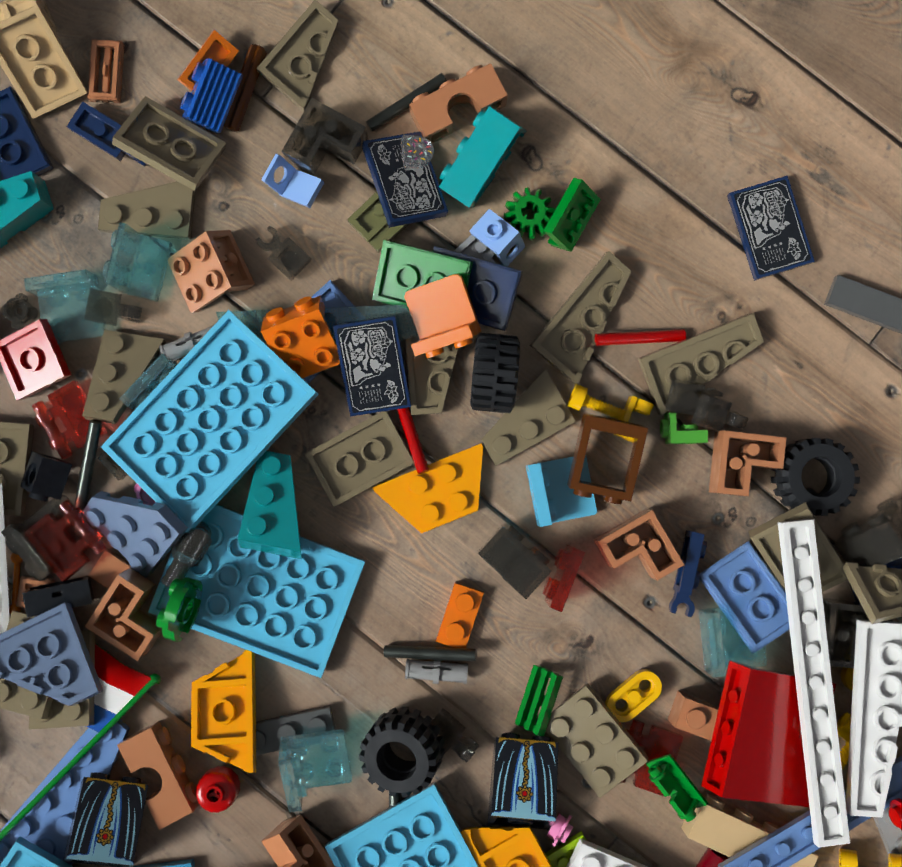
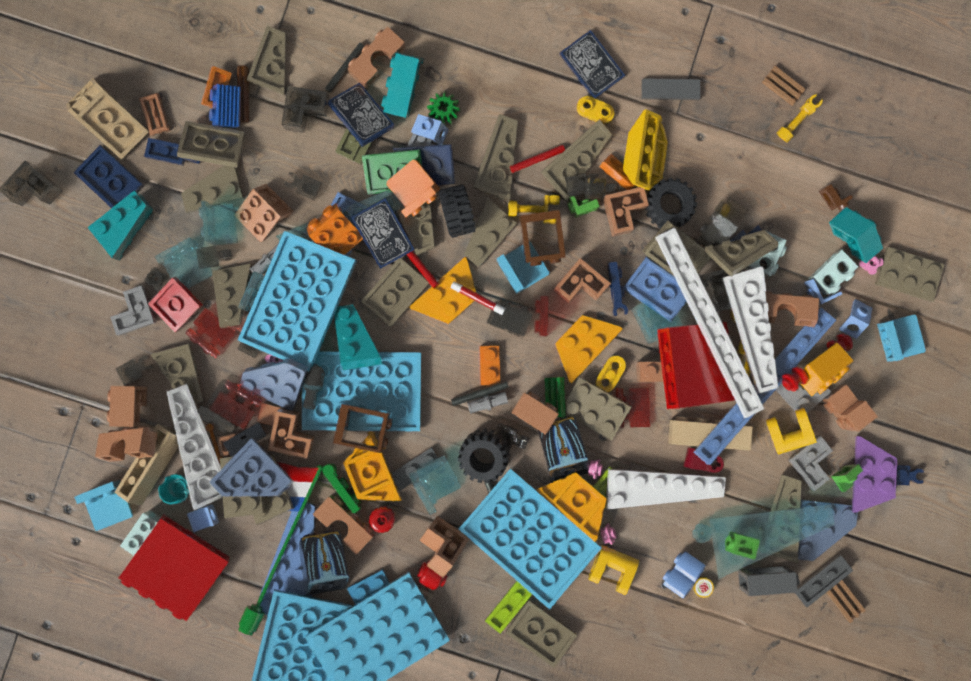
camera: 25 degrees left, 0 degrees up
(45, 476) = (210, 371): black brick -> none
(88, 463) = (232, 354): pearl dark grey bar -> none
(175, 719) = (341, 487): none -> green plate
(180, 609) = (321, 417): green plate -> none
(198, 647) = (342, 426): none -> reddish brown window
(295, 184) = (295, 142): light blue bracket -> none
(416, 151) = (362, 95): clear tile -> none
(479, 514) = (478, 298): none -> red bar
(500, 719) = (534, 412): none -> nougat brick
(571, 215) = (469, 100): green bracket -> none
(610, 635) = (584, 343): none -> light orange wing
(675, 783) = (650, 413): green hinge -> none
(750, 298) = (594, 112): none -> yellow plate
(755, 402) = (614, 168): none -> orange plate
(806, 384) = (646, 151): none -> yellow wedge

